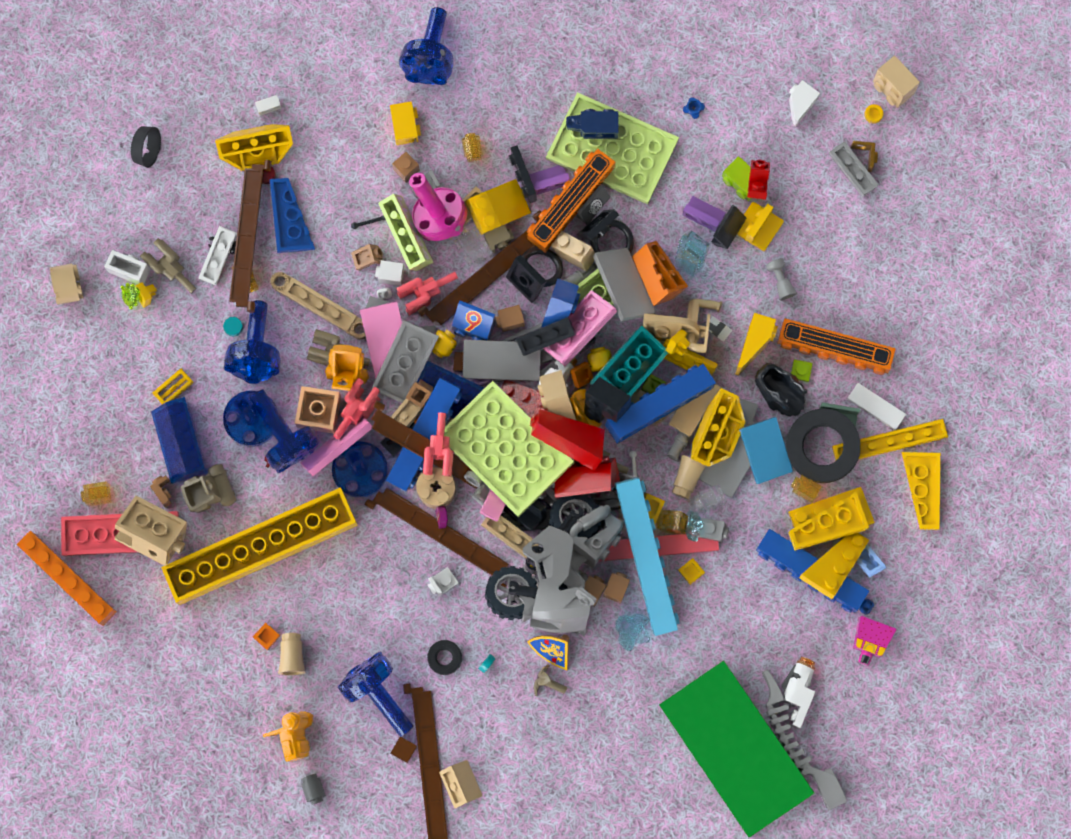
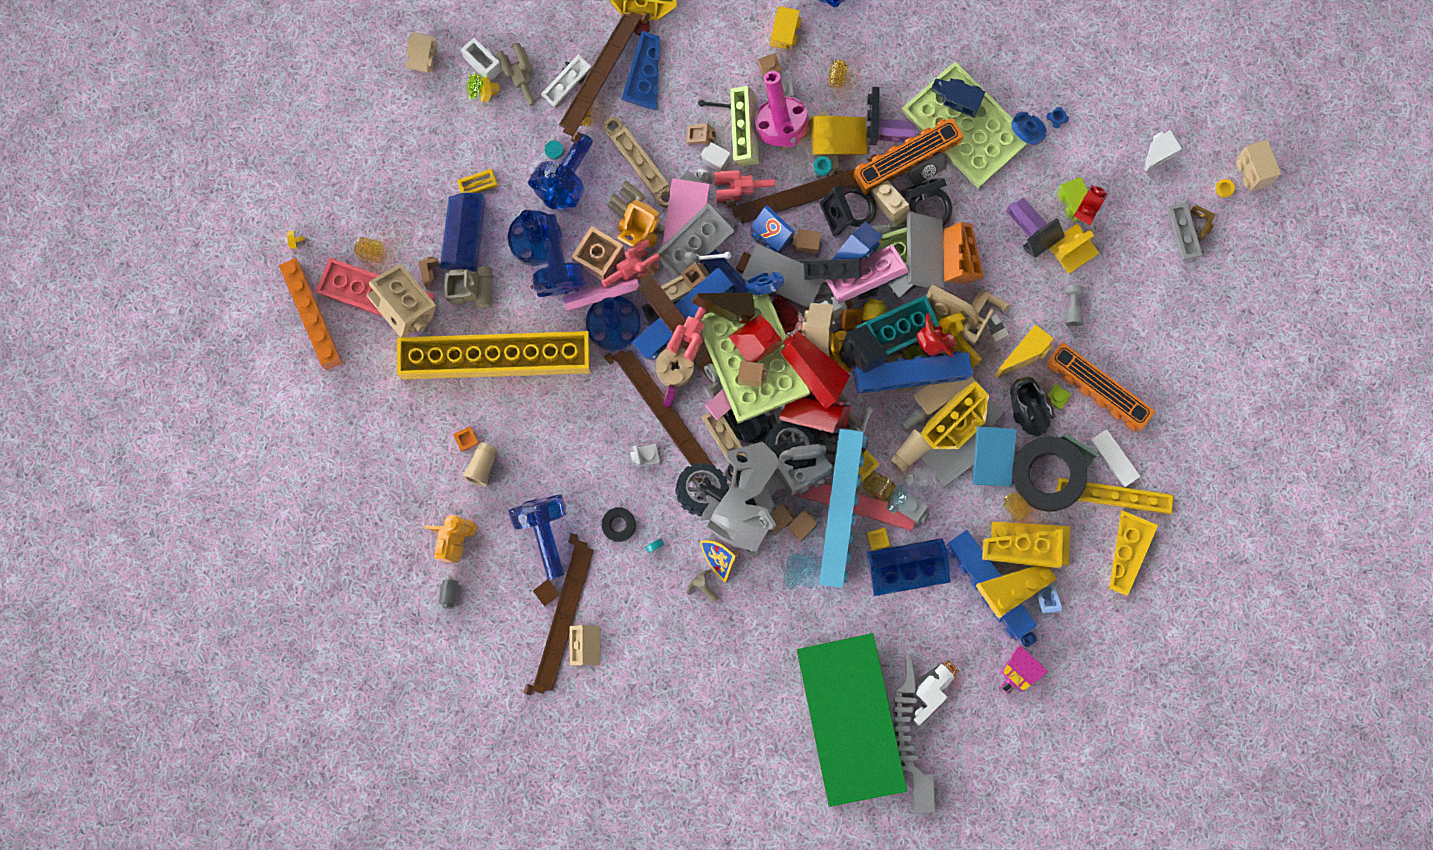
camera: 25 degrees right, 0 degrees up
(17, 513) = (292, 239): none -> yellow tile
(411, 377) = (691, 257): none -> hinge
(445, 343) = (737, 240): yellow head -> none
(464, 411) = (727, 305): none -> dark brown slope
(488, 376) = (764, 283): none -> blue tile
(495, 241) = (822, 166): none -> teal tile
(503, 432) = (756, 339): none -> red slope
(513, 466) = (752, 374): none -> medium nougat brick
(614, 326) = (900, 286): none -> brick
(668, 365) = (934, 341): none -> red hat
(671, 129) = (1028, 128): none -> blue tile
(691, 253) = (999, 247): clear light blue brick -> none
(730, 585) = (908, 567): none -> clear blue slope

